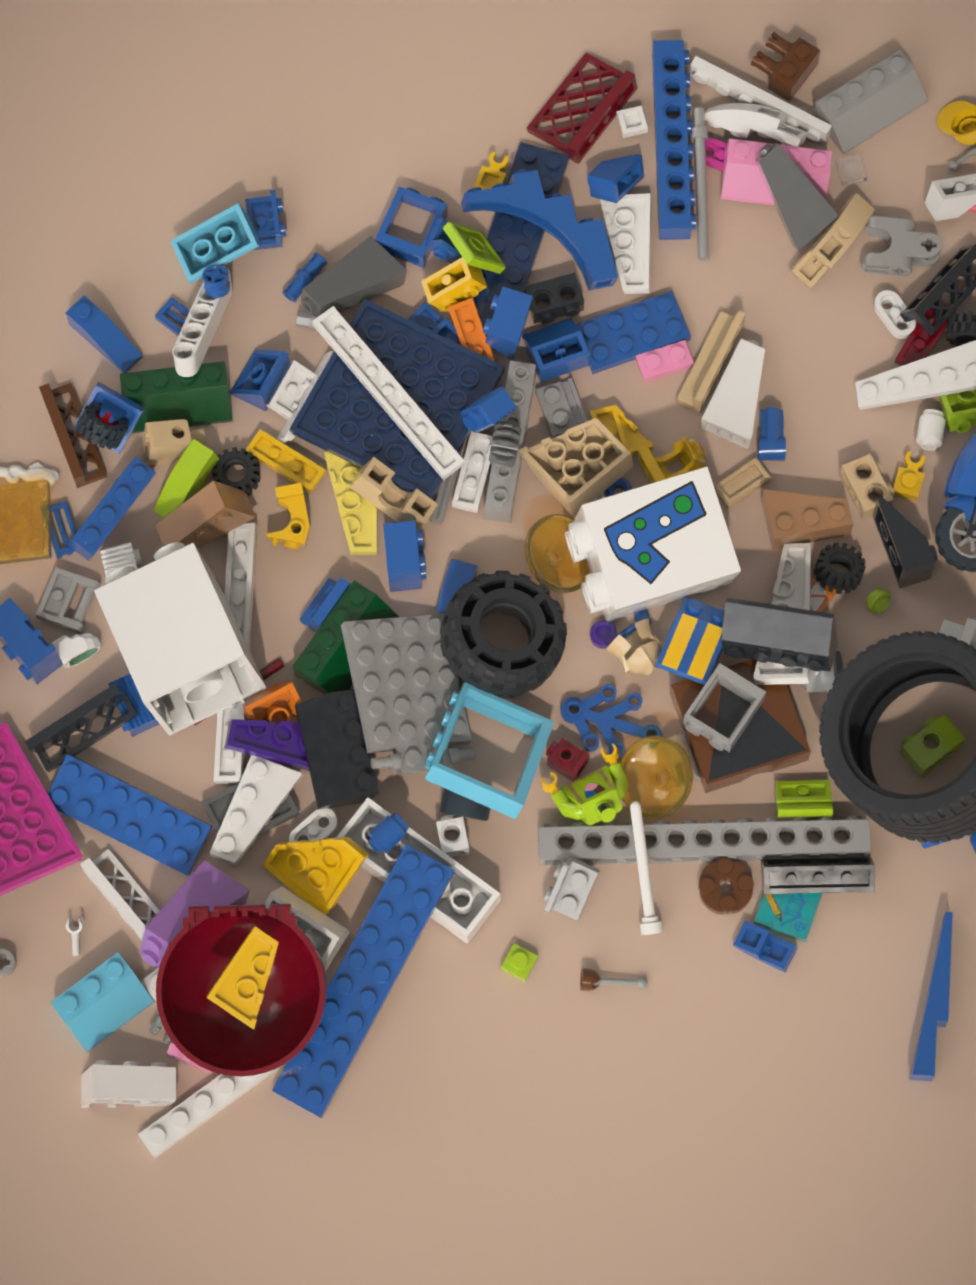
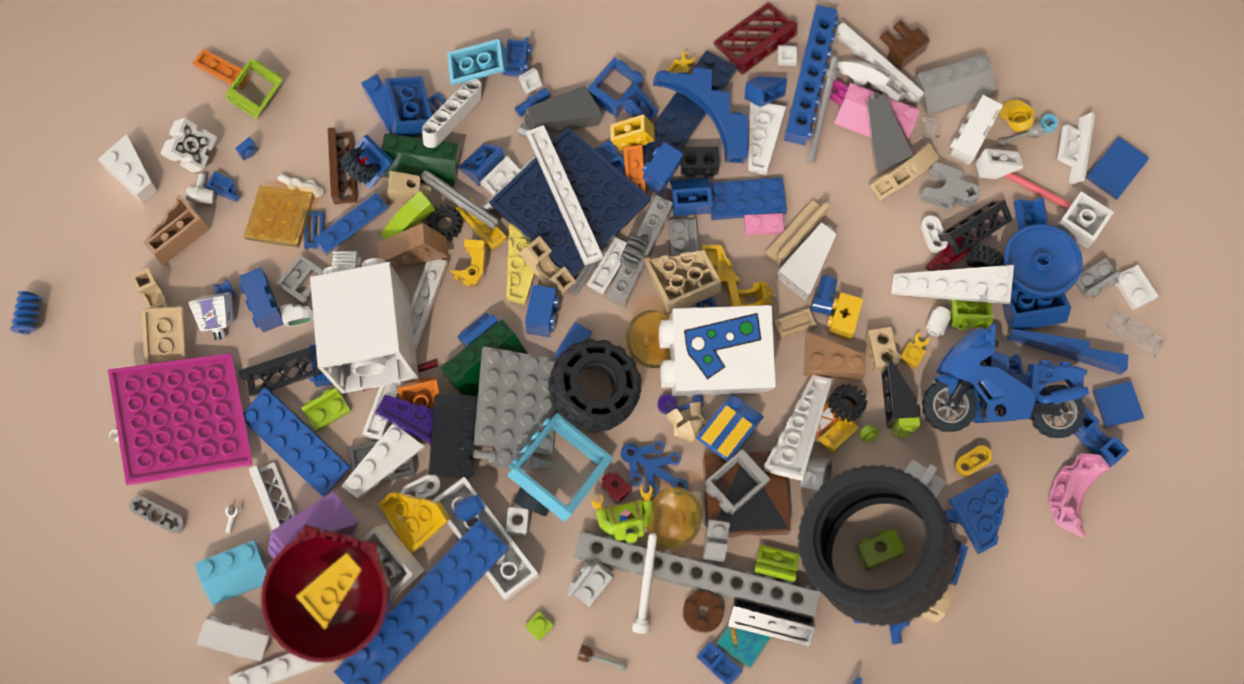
camera: 10 degrees right, 0 degrees up
(139, 327) = (407, 105): none -> blue slope
(154, 761) = (326, 409): none -> lime bracket
(216, 281) = (468, 87): blue wheel -> none
(248, 436) = (460, 199): none -> light grey axle
(293, 248) = (530, 80): none -> white plate
(474, 247) = (653, 111): lime plate -> none
(488, 410) = (629, 225): blue brick -> none
(717, 792) = (715, 541): none -> light grey brick
(779, 634) = (791, 440): slope -> none
(809, 441) = (851, 308): none -> yellow brick
(843, 608) = (838, 434): none -> yellow plate
(914, 158) = (975, 130): none -> white wedge
(923, 579) = (905, 427): none -> lime plate

